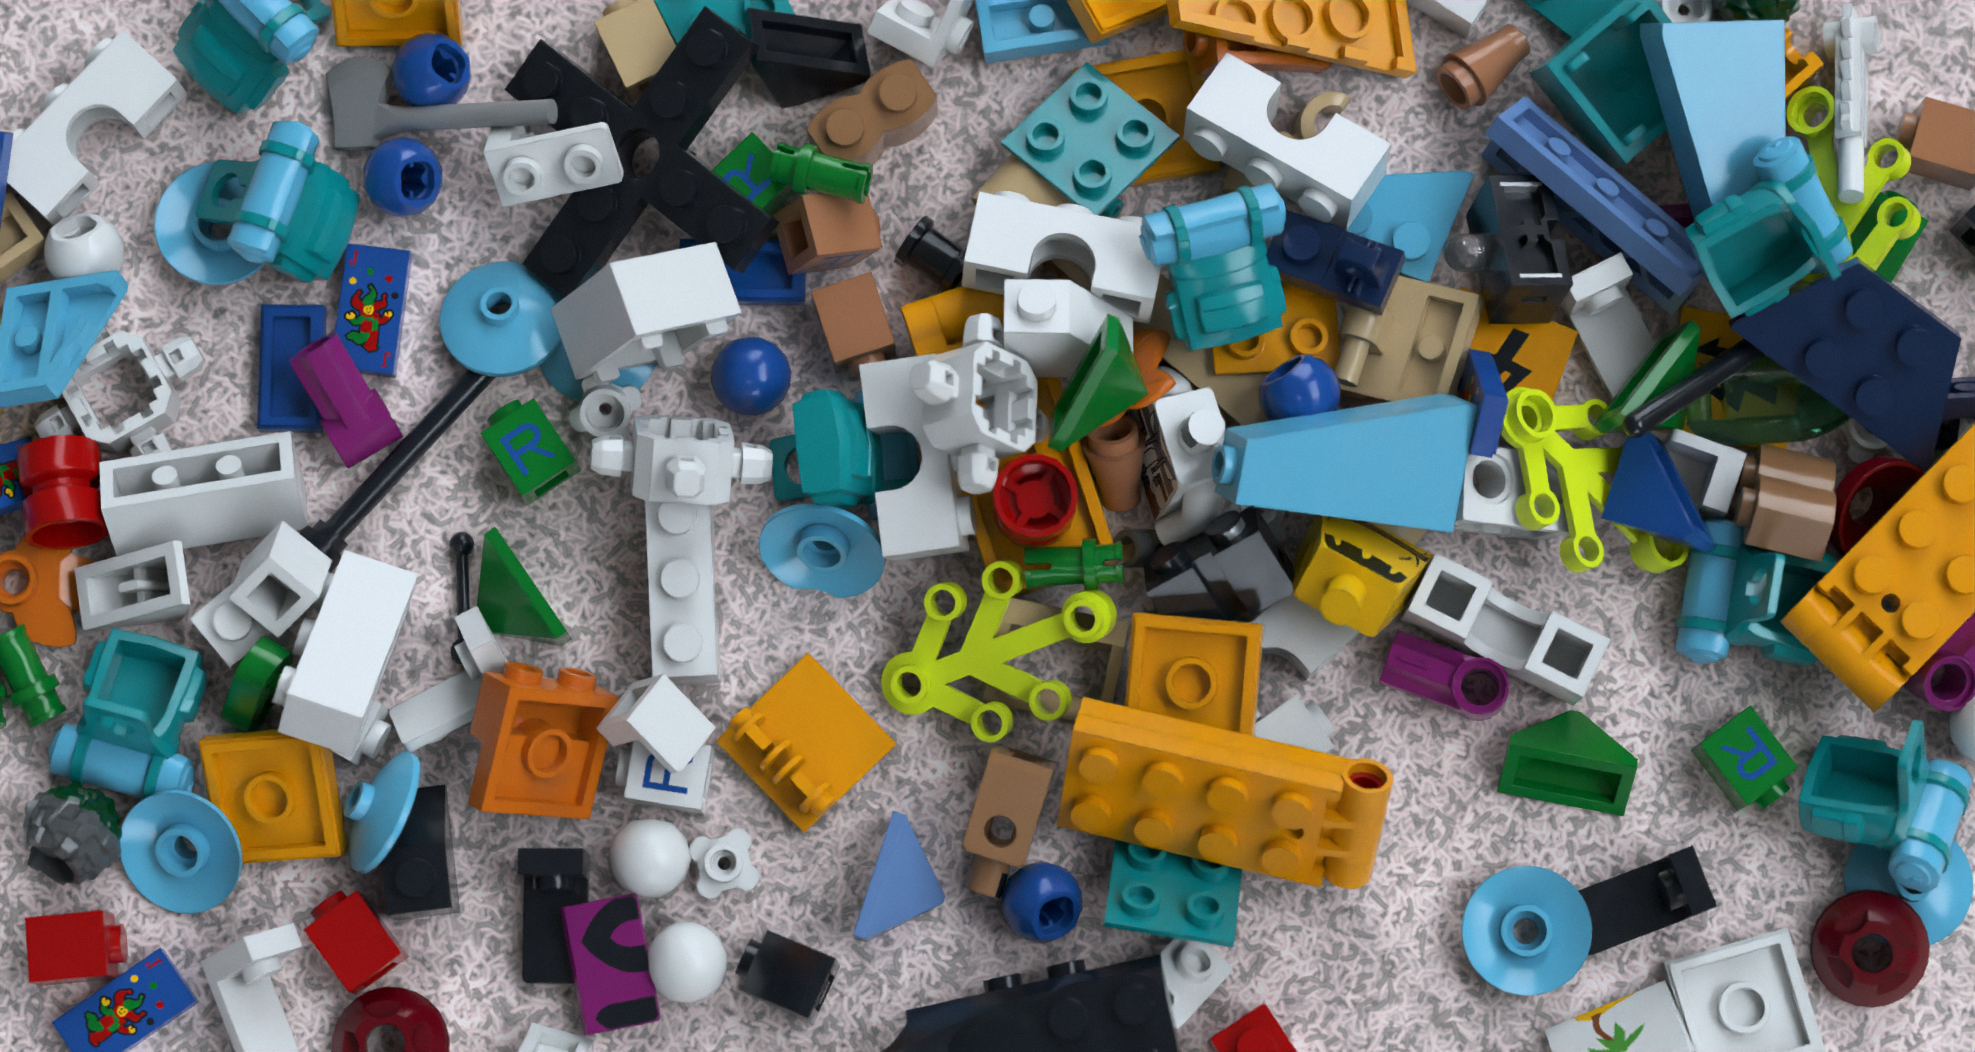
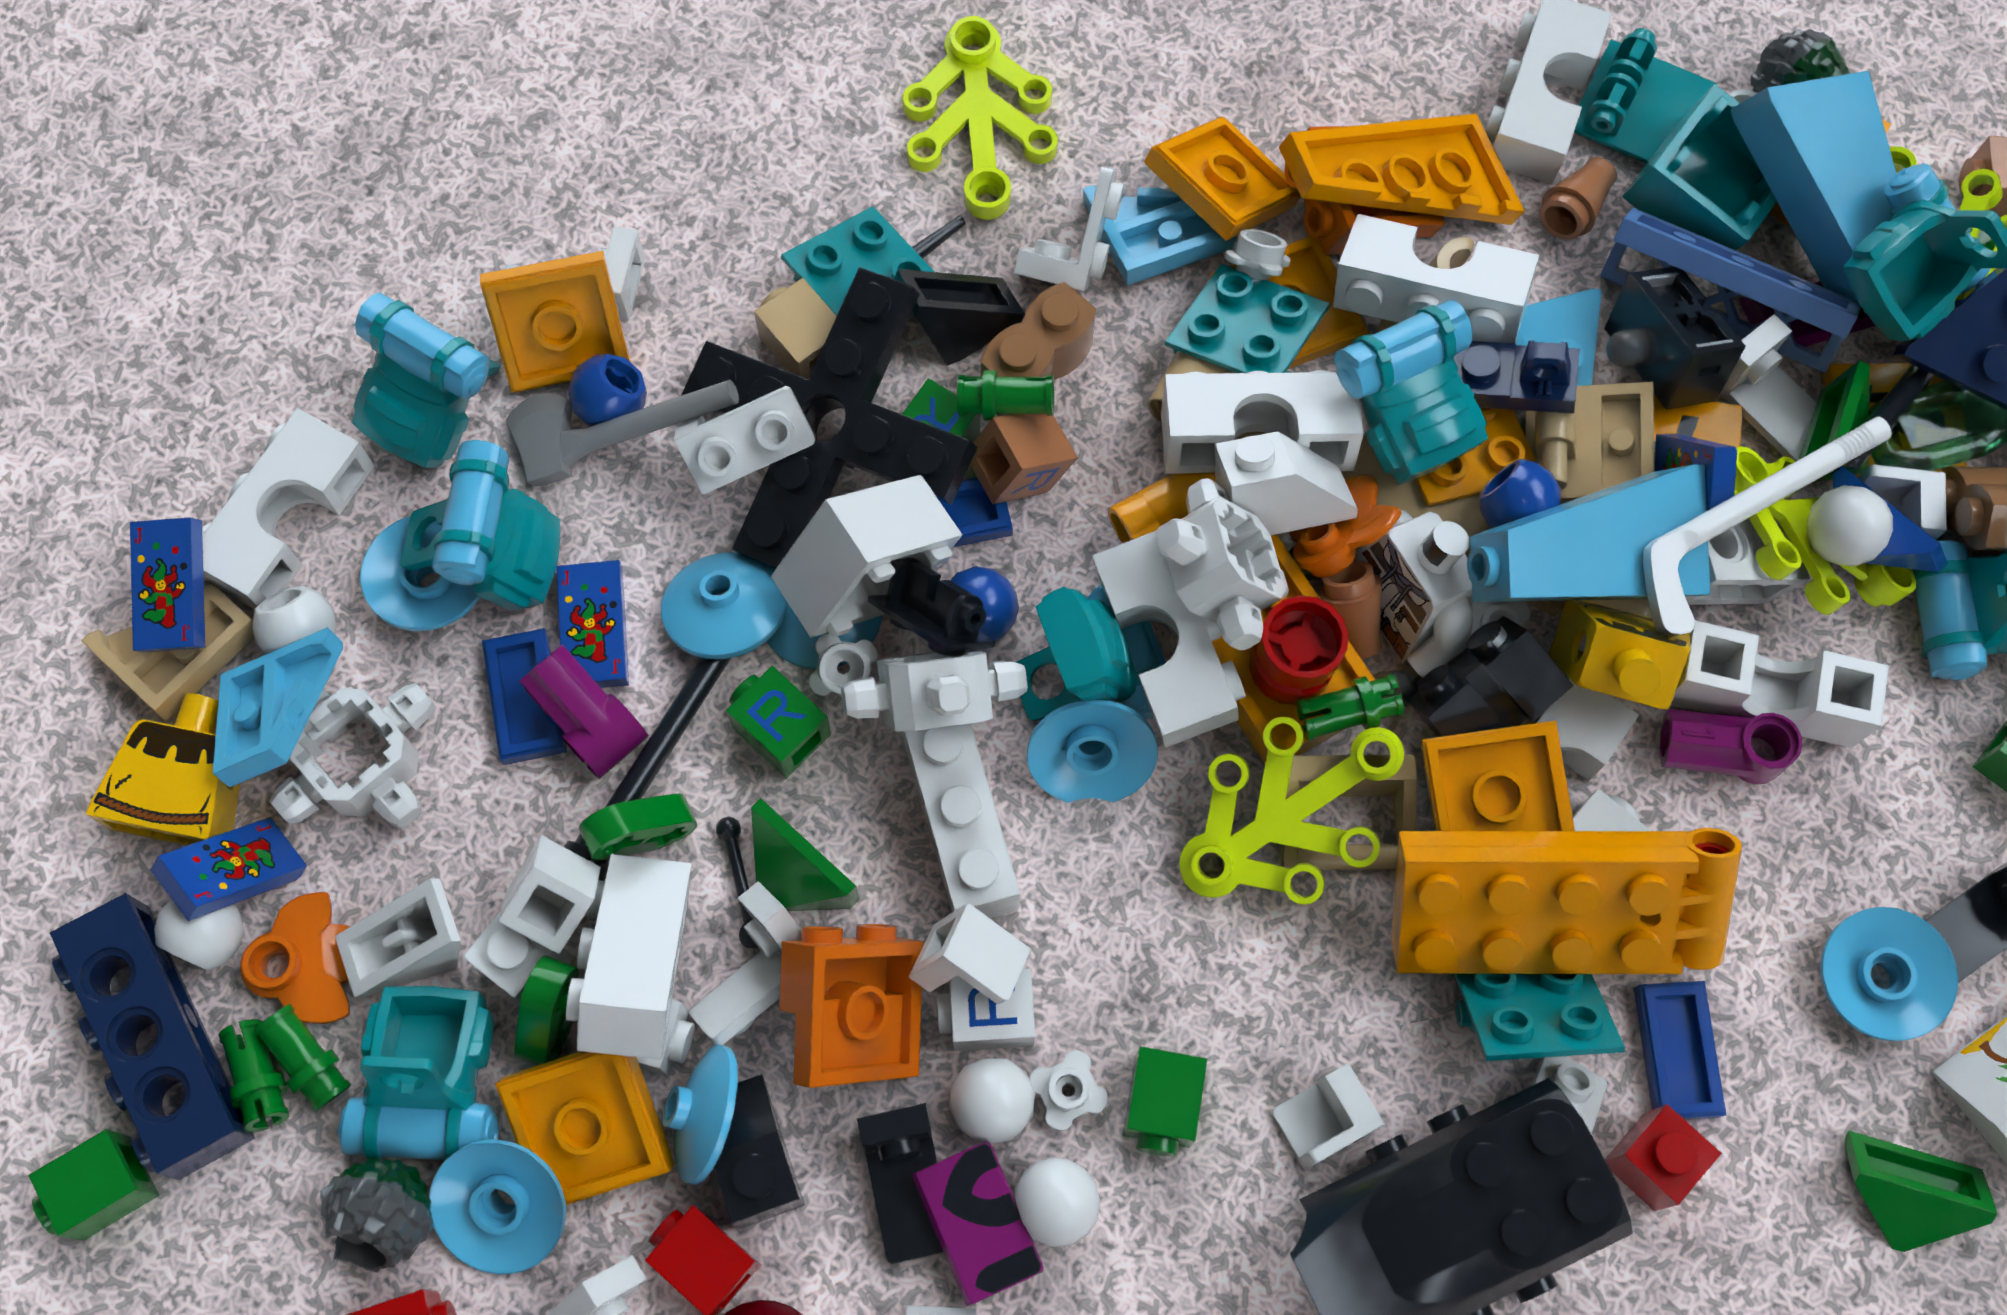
camera: 15 degrees left, 10 degrees down
(62, 492) = (308, 859): red wheel -> none
(203, 493) = (454, 830): white brick -> none
(375, 527) = (637, 826): none -> green beam
(406, 161) = (598, 491): blue piece -> none
(698, 381) = (933, 609): none -> black hinge
(787, 975) = (1168, 1191): black slope -> none
(805, 742) = (1119, 949): light orange hinge -> none
(808, 893) = (1164, 1100): none -> green brick
(853, 323) = (1065, 535): nougat brick -> none
(900, 884) = (1252, 1068): medium blue slope -> none
(932, 255) = (1126, 460): black bush -> none
(956, 943) = (1327, 1117): none -> white panel
(1012, 787) = (1354, 943): medium nougat torso -> none
(1041, 902) = (1403, 1055): blue piece -> none
(1099, 388) = (1335, 523): green slope -> none
(1123, 65) = (1258, 254): none -> white plate
(1309, 956) = (1680, 1049): none -> blue tile
(1407, 486) = (1662, 555): none -> white piece
(1569, 764) = (1871, 804): green slope -> none
(1614, 493) = (1849, 525): none -> white piece
(1850, 43) = (1905, 112): white piece -> none

